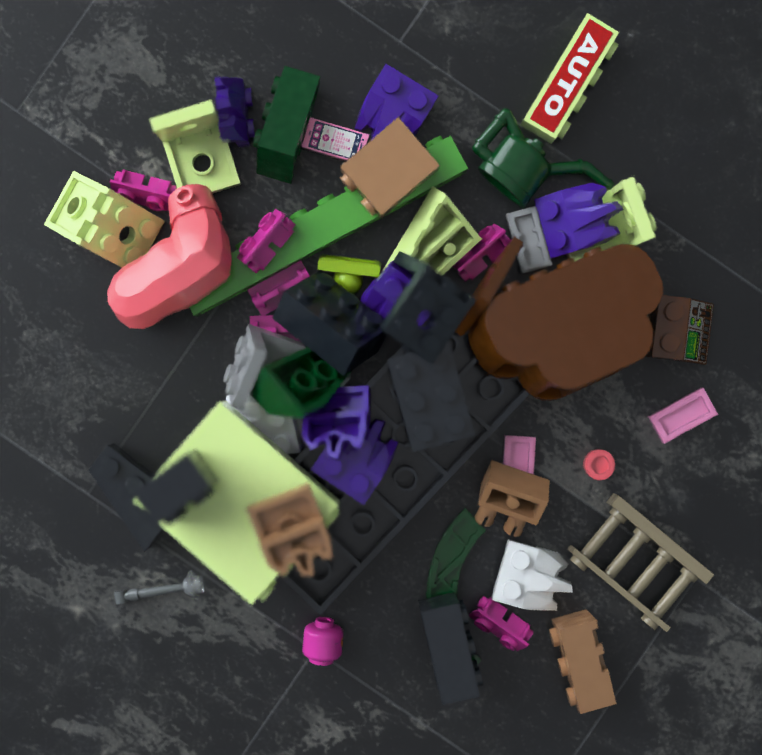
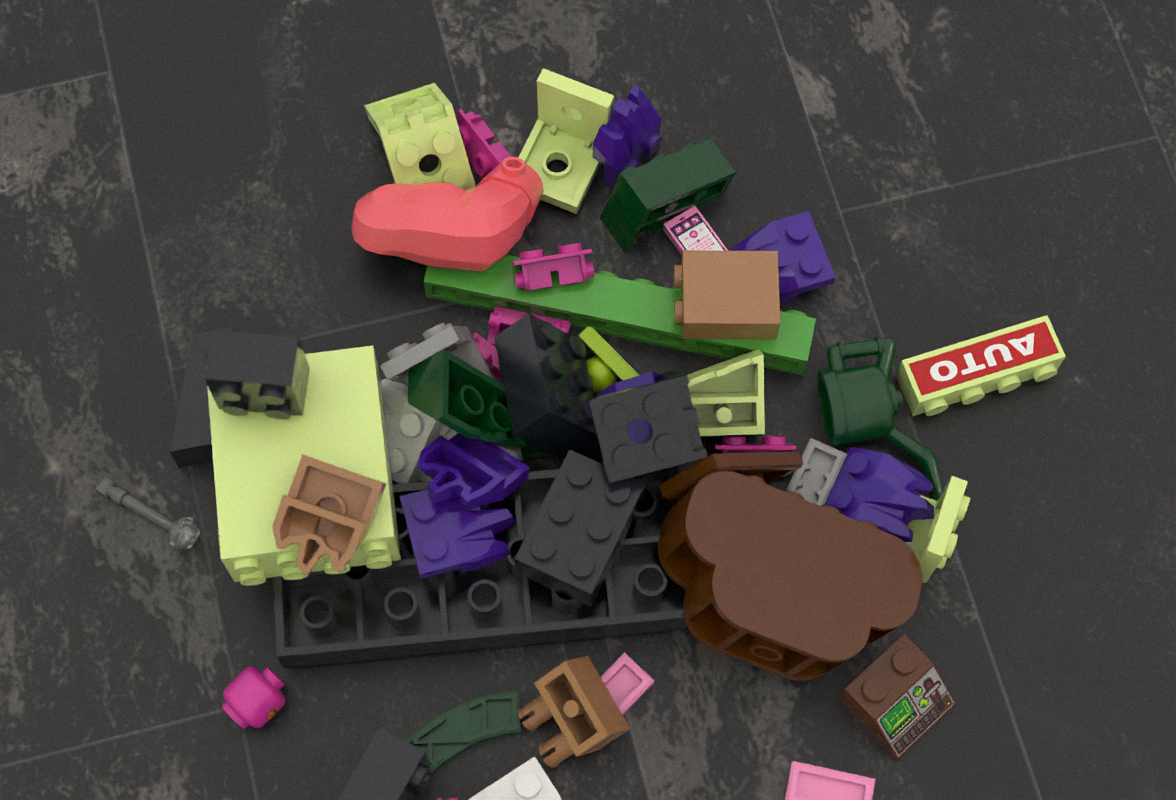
camera: 40 degrees right, 20 degrees down
(599, 464) = (697, 767): coral tile -> none

